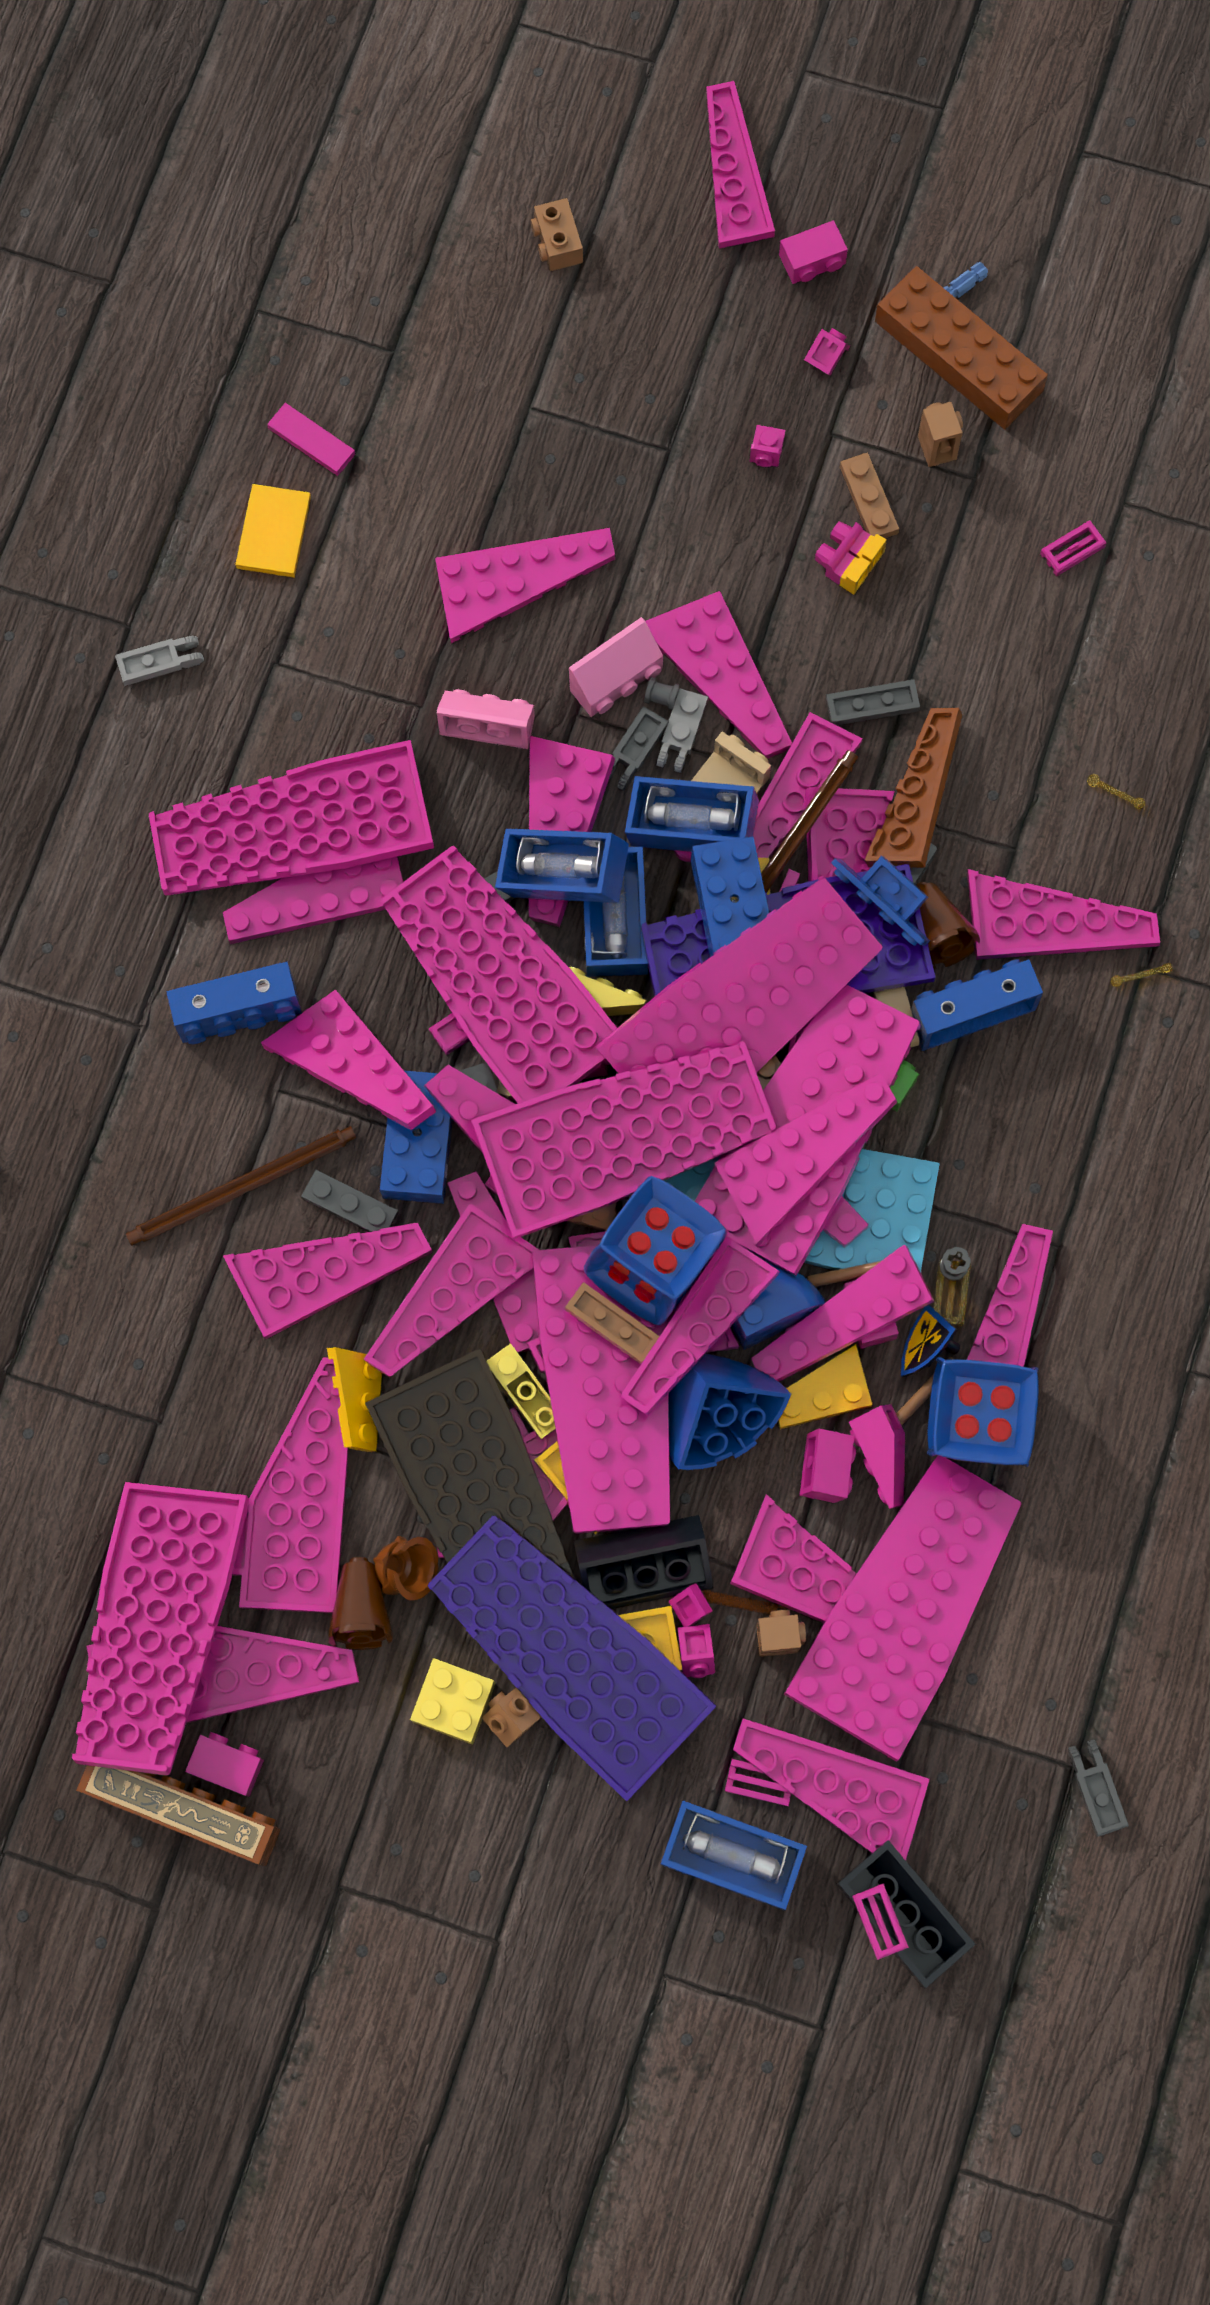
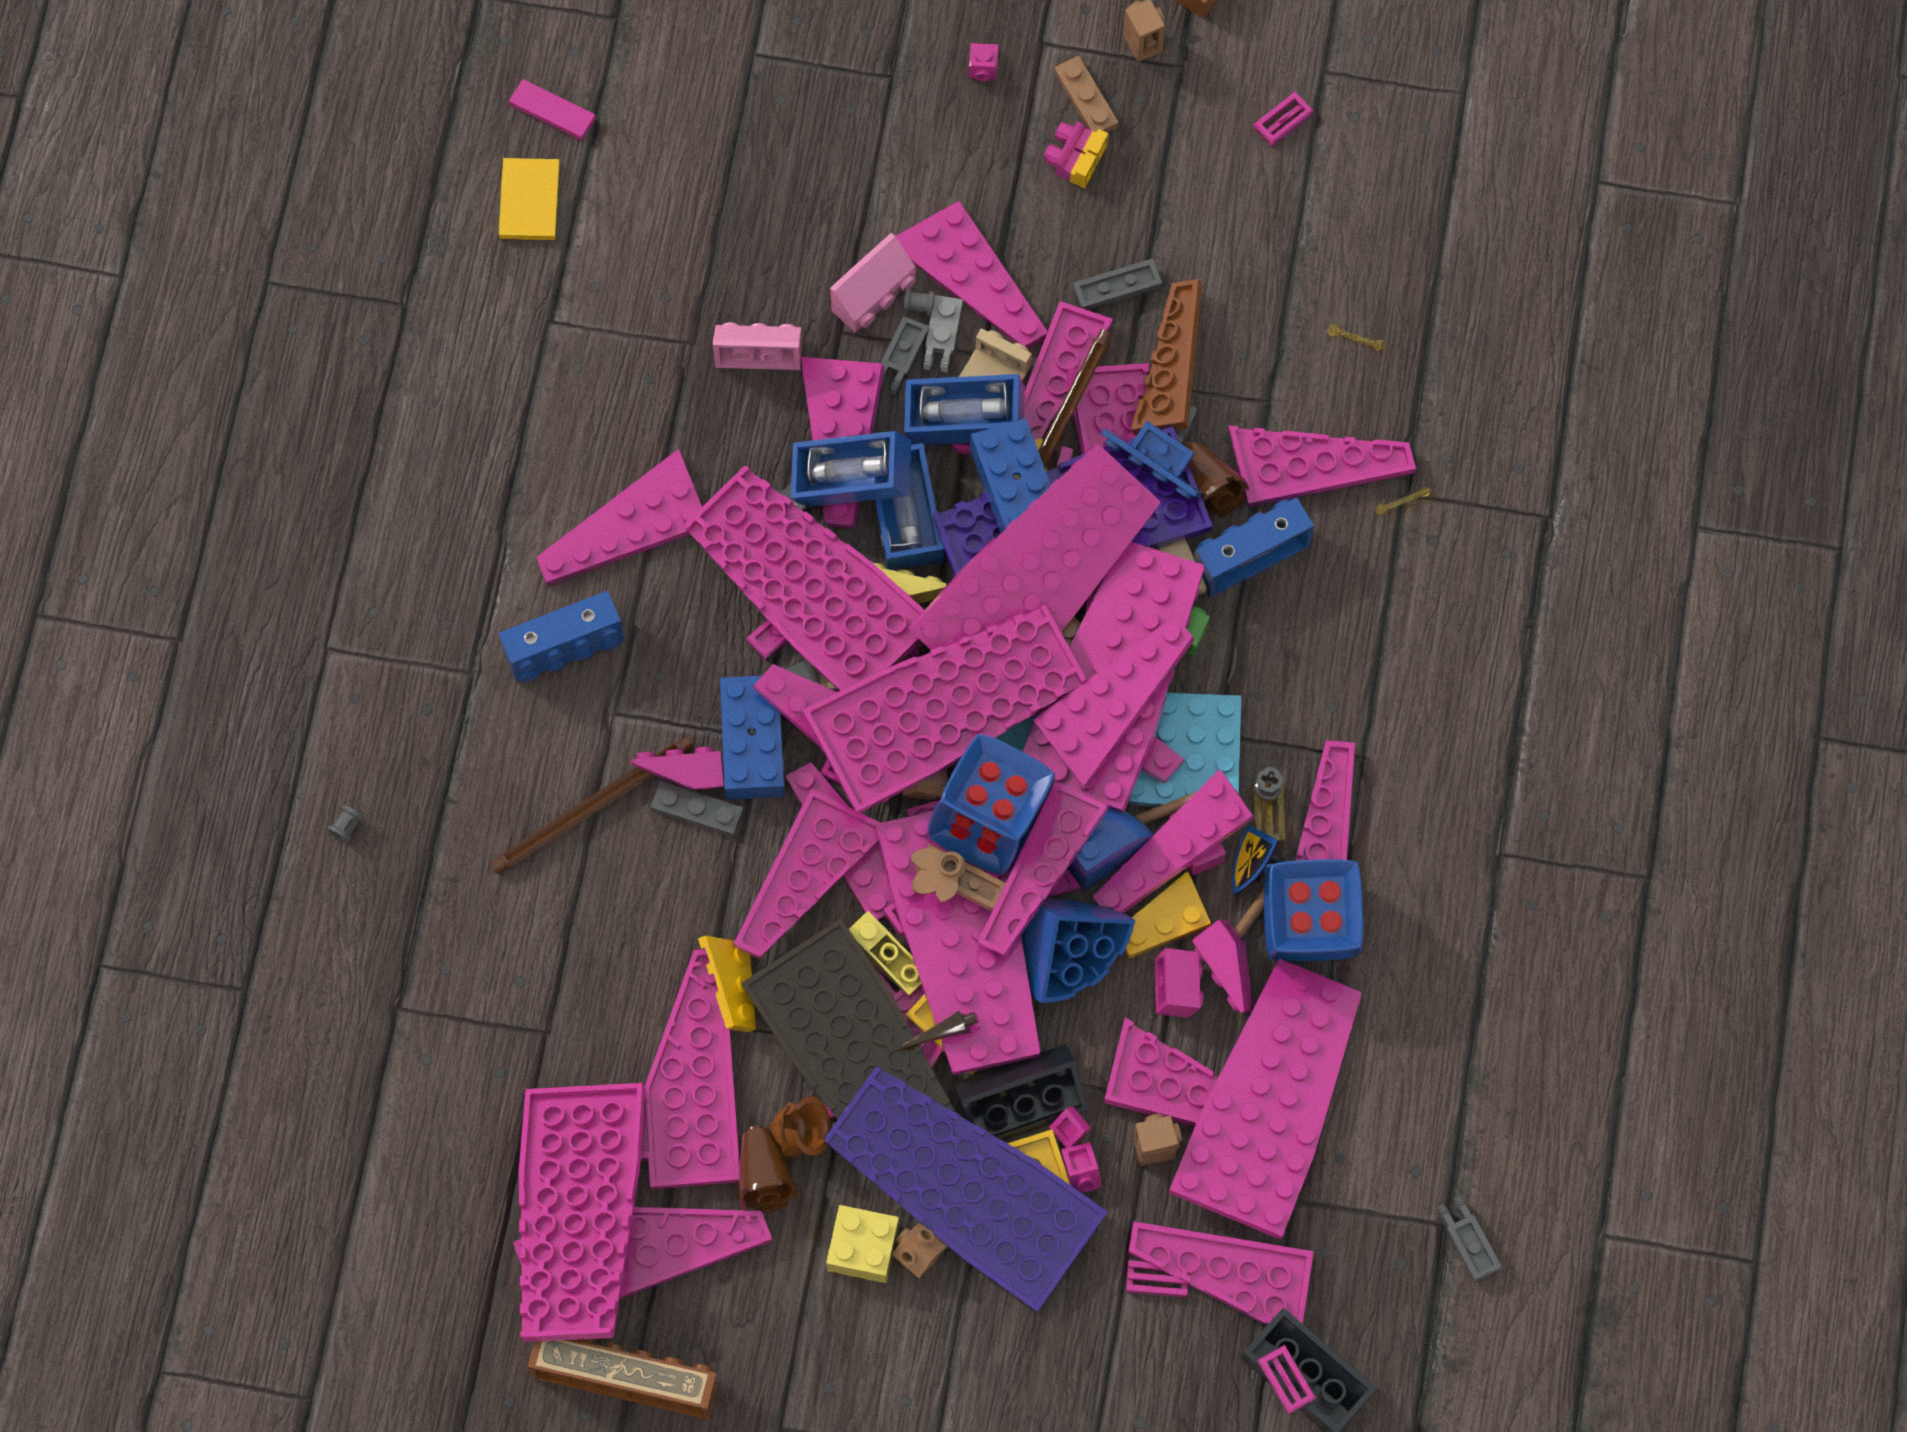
camera: 10 degrees left, 5 degrees down
(157, 659) = (438, 332): light grey hinge -> none
(224, 1764) = (659, 1330): dark pink brick -> none
(294, 825) = (595, 466): dark pink wing -> none
(308, 1276) = (670, 878): dark pink wing -> none
(347, 1056) = (676, 672): dark pink wing -> none
(350, 1165) = (690, 771): none -> dark pink slope
(506, 578) = (756, 215): dark pink wing -> none
(580, 1483) = (952, 1026): none -> dark brown piece
(583, 1317) = (934, 876): none -> medium nougat plate
(732, 1602) = (1114, 1121): dark orange piece -> none
(733, 1855) = (1143, 1344): blue piece -> none

